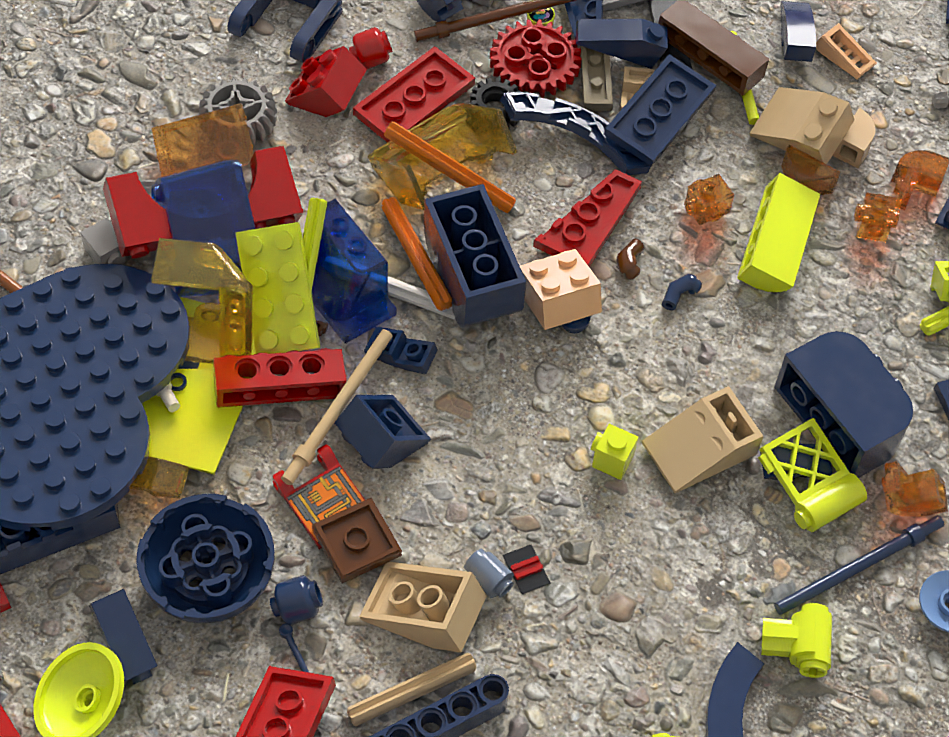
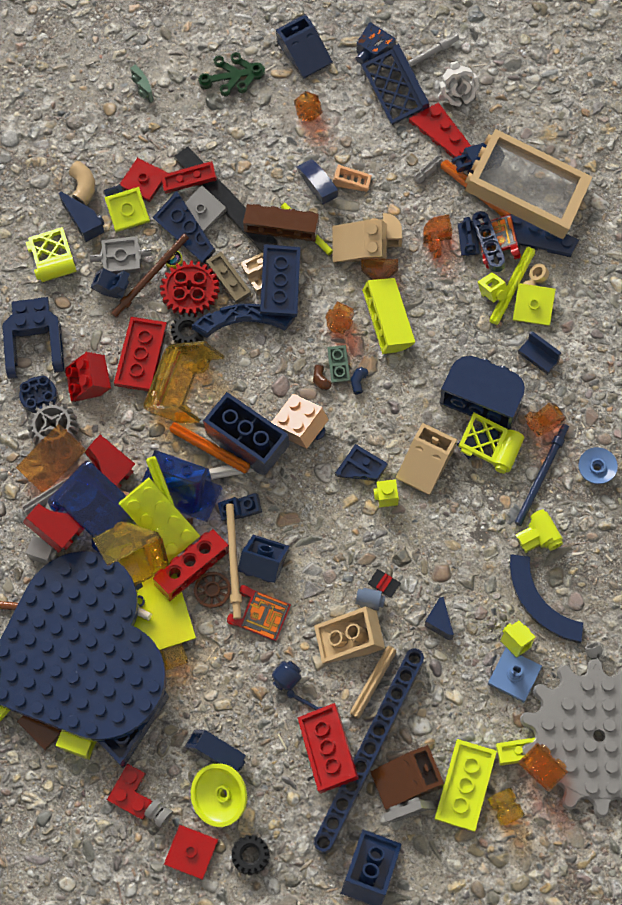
camera: 25 degrees left, 10 degrees up
(193, 527) = (209, 673): dark blue brick -> none
(252, 63) = (37, 391): none -> dark blue tile
(283, 428) = (212, 590): none -> reddish brown wheel
(356, 540) = (292, 625): reddish brown plate -> none
(371, 47) = (96, 339): red head -> none
(447, 165) = (193, 387): orange axle -> none
(566, 664) = (439, 620): none -> dark blue slope
(591, 220) = (286, 369): red wing -> none
(605, 396) = (361, 465): none -> dark blue wing
(626, 39) = (233, 247): dark blue slope -> none
(667, 255) = (338, 364): none -> sand green slope
(876, 217) = (431, 272): clear orange brick -> none

